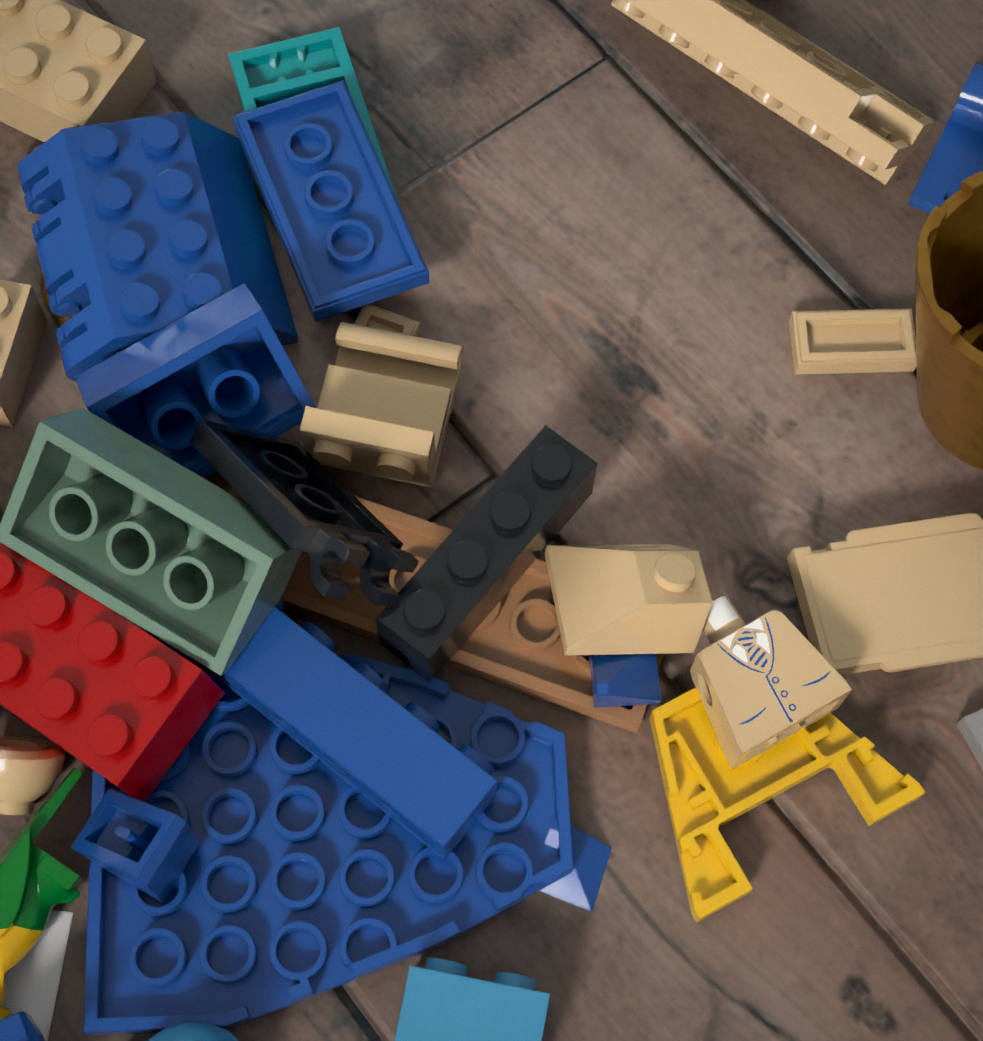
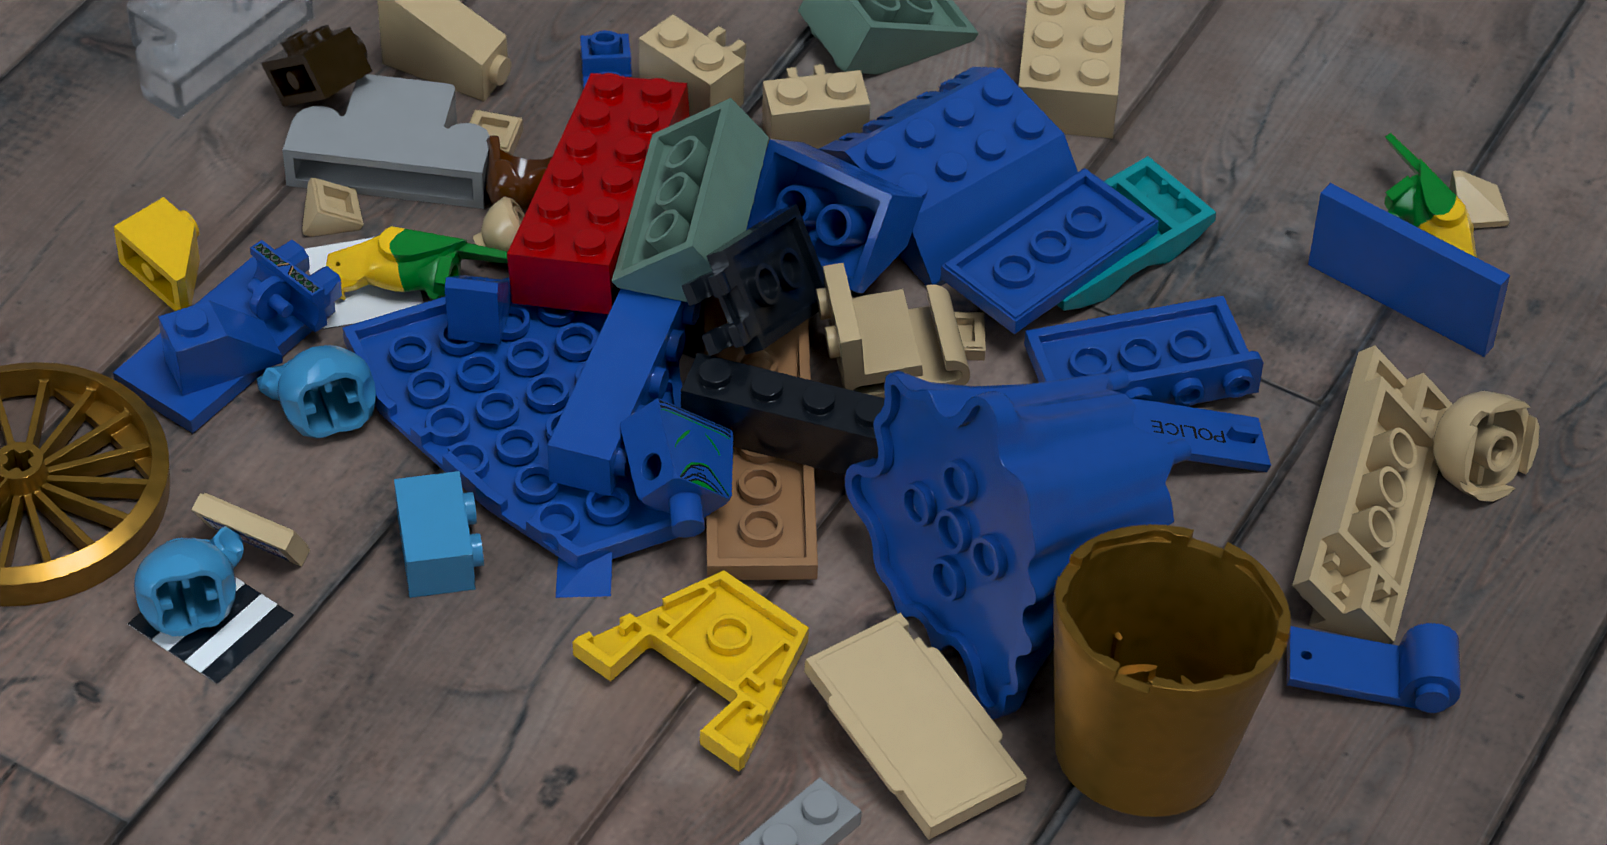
camera: 70 degrees right, 20 degrees down
(507, 184) = (1169, 352): none -> blue bracket
(522, 703) = (679, 463): none -> blue torso
(624, 680) = (741, 536): blue slope -> none
(626, 193) = (1212, 435): none -> blue door
(628, 598) = (802, 519): tan slope -> none
(761, 681) = (769, 611): tan torso -> none
(765, 376) = (990, 498): none -> blue piece

